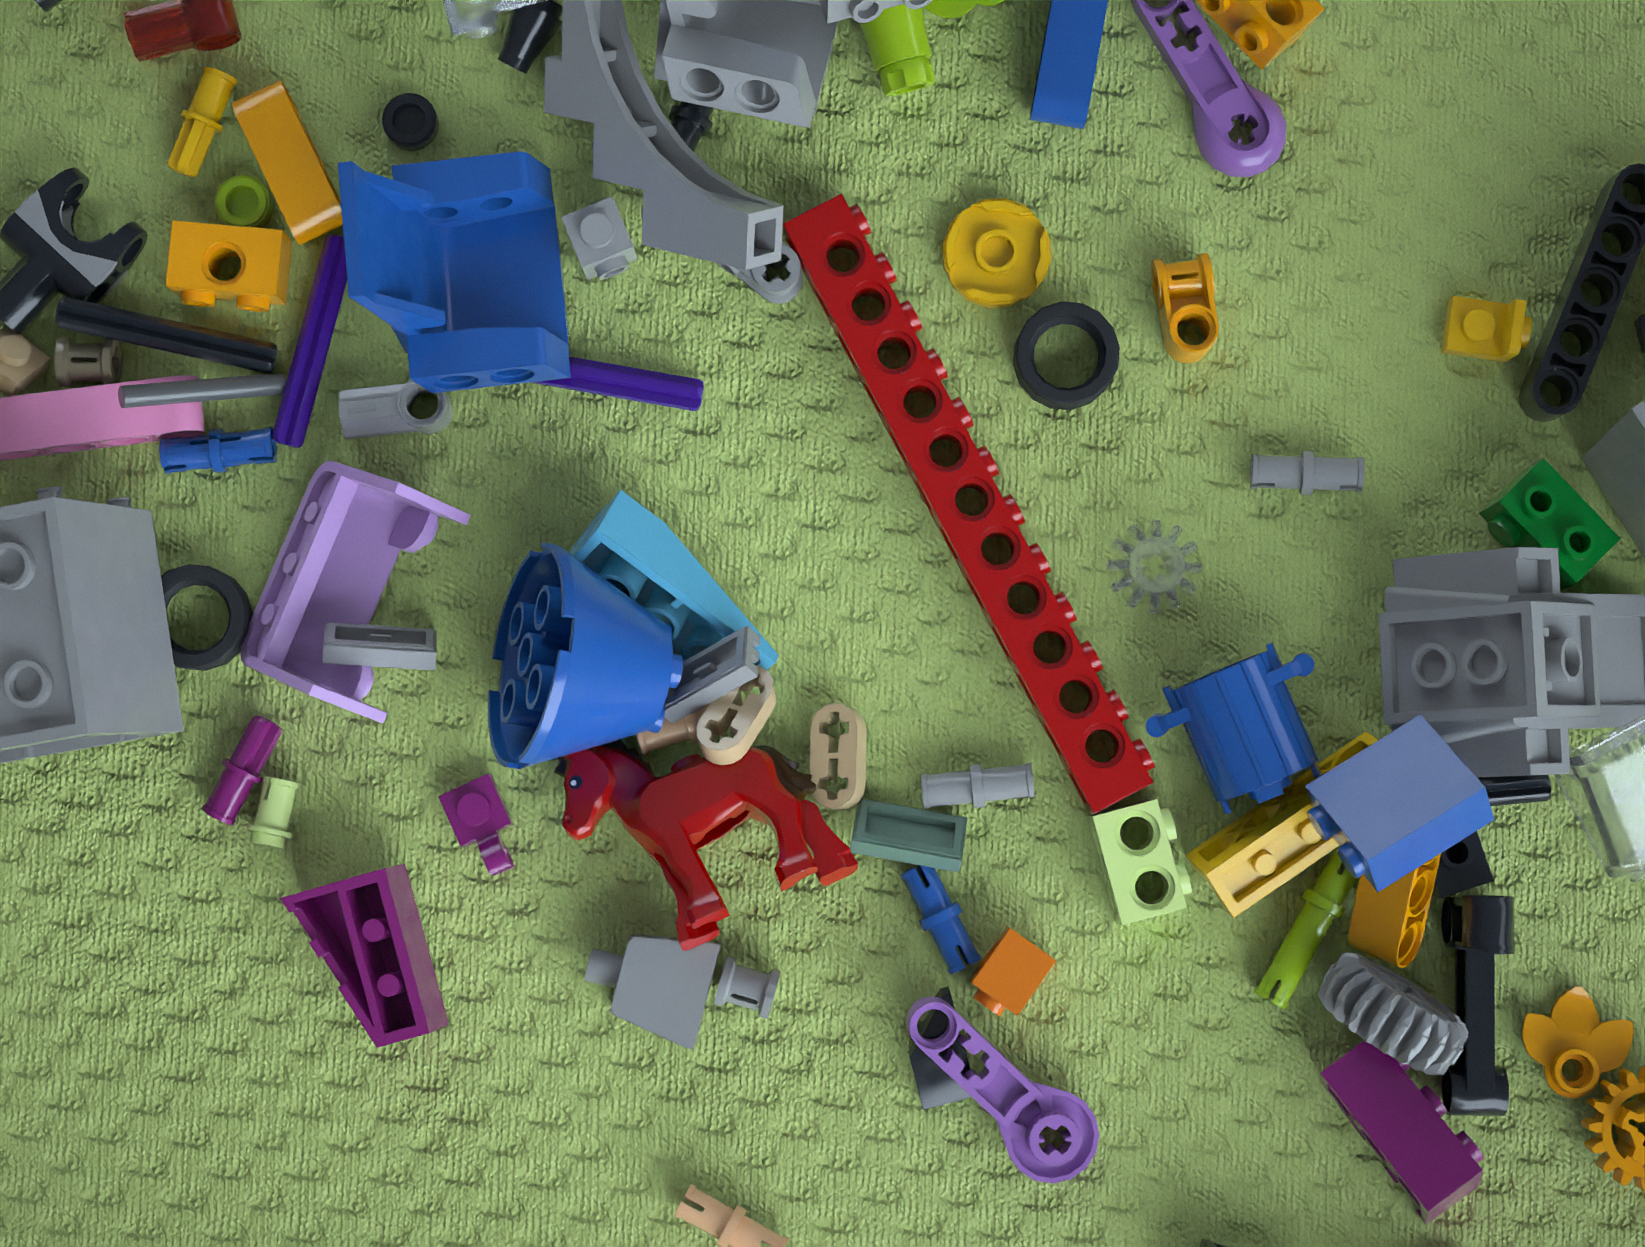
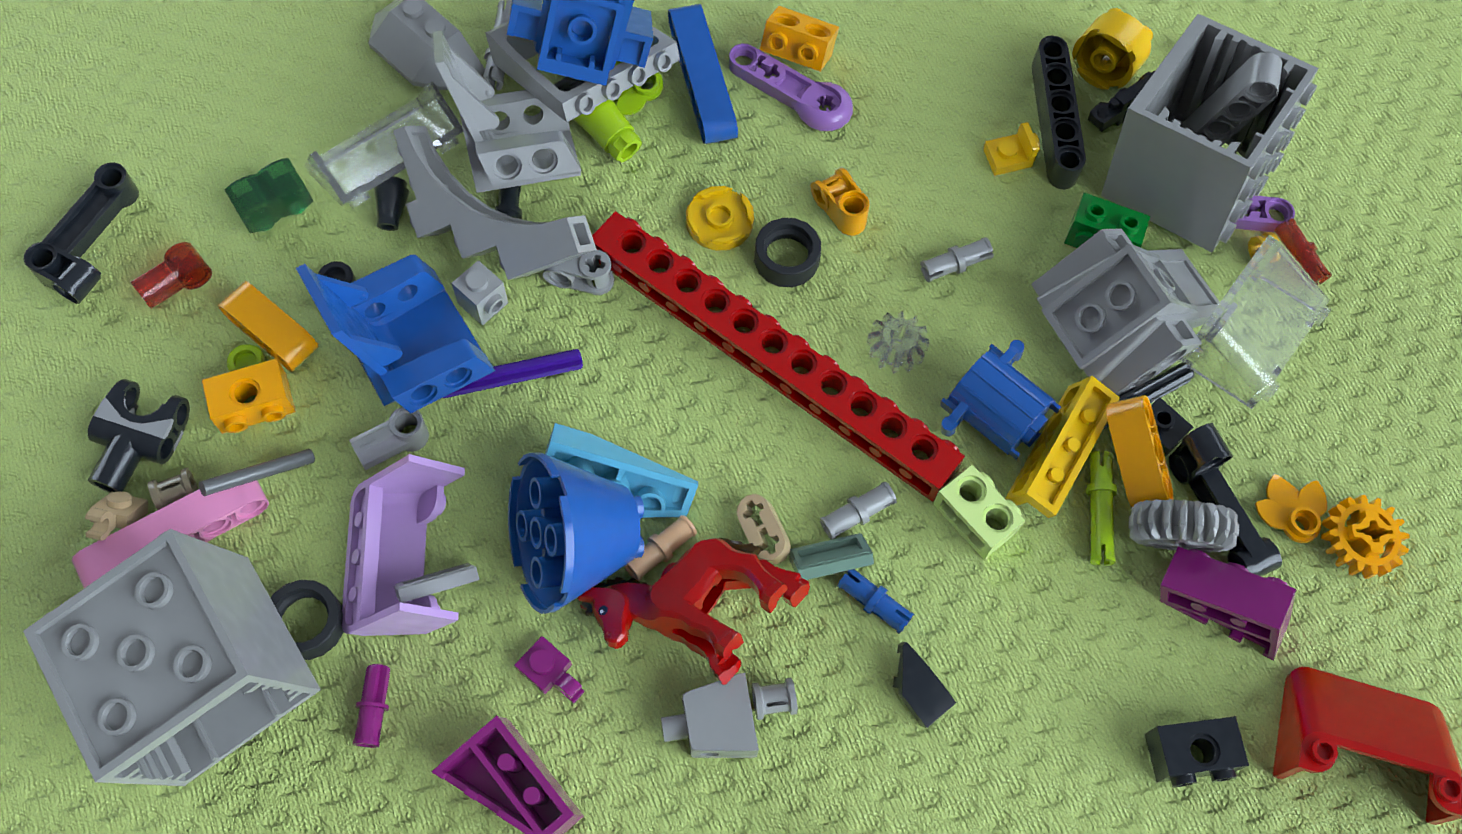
camera: 25 degrees left, 20 degrees down
(165, 335) = (219, 452): black axle -> none
(201, 122) = (202, 326): yellow axle -> none
(217, 450) = (281, 511): blue pin -> none
(273, 812) = (404, 725): yellowish green pin -> none
(312, 344) = (321, 424): dark purple axle -> none
(714, 673) = (663, 504): light grey tile -> none
(744, 719) = (697, 522): tan beam -> none
(1010, 973) = (937, 612): orange brick -> none
(1013, 1100) = (979, 691): medium lavender beam -> none
(1398, 804) = (1119, 392): brick -> none

